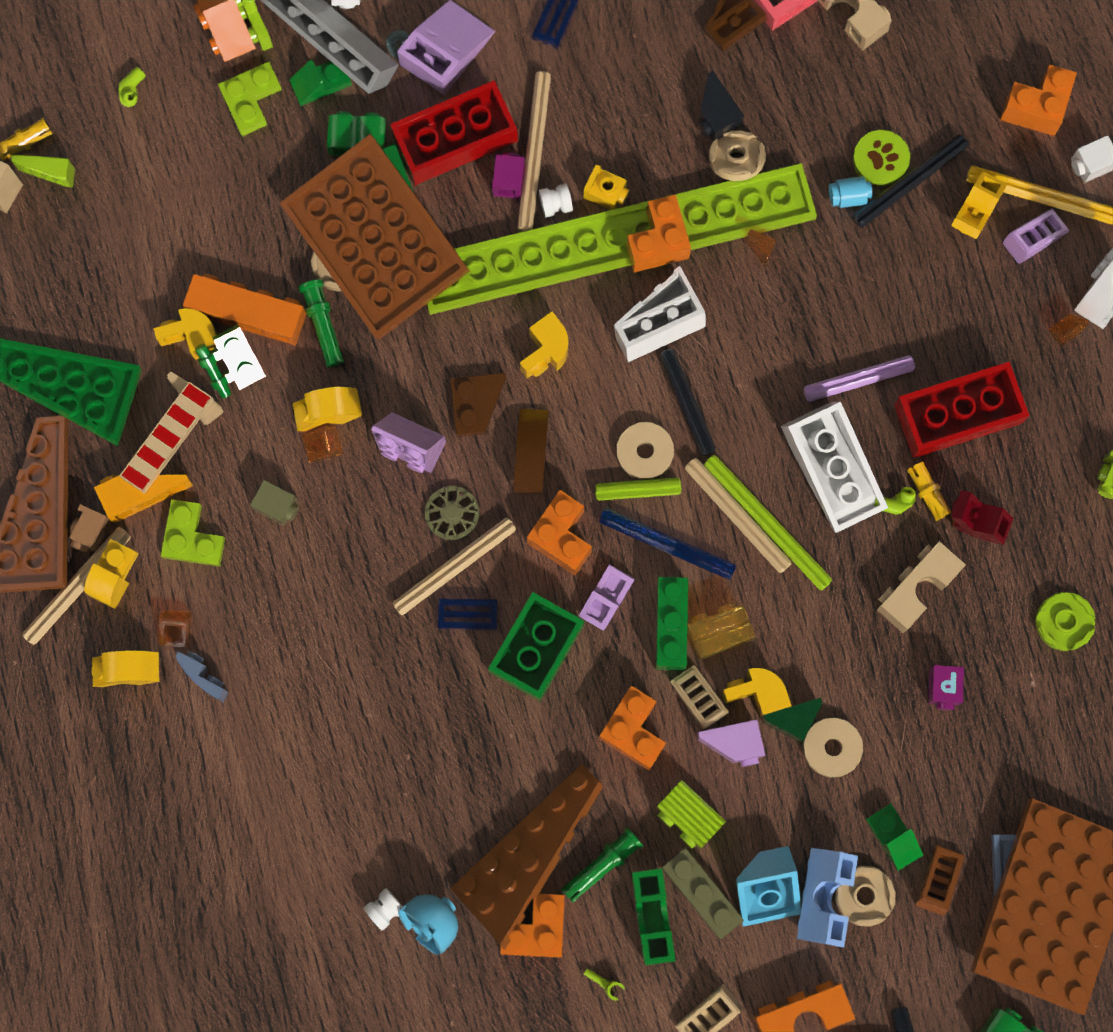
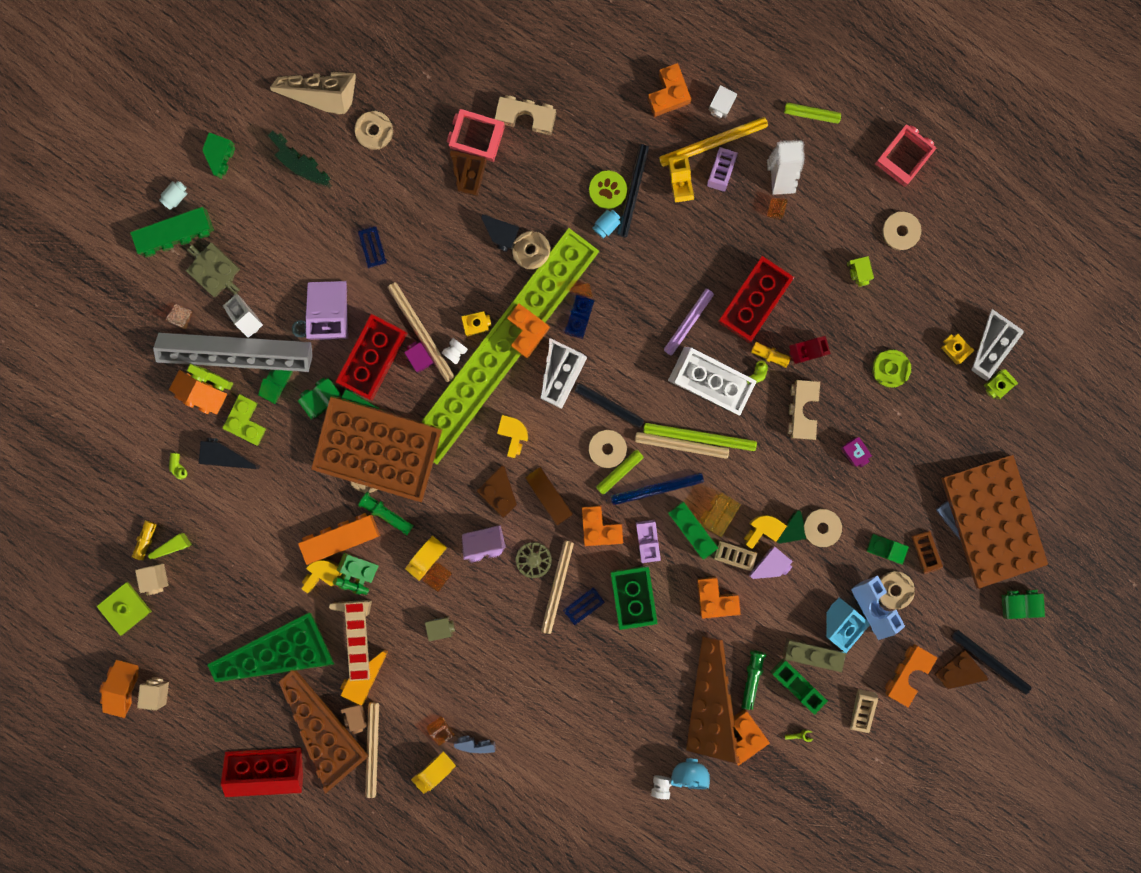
camera: 45 degrees left, 10 degrees up
(107, 577) = (386, 732): yellow brick -> none
(184, 542) = (406, 683): lime plate -> none
(187, 107) = (220, 454): none -> black slope
(690, 815) = (778, 620): lime brick -> none
(733, 275) = (579, 316): none -> clear blue slope

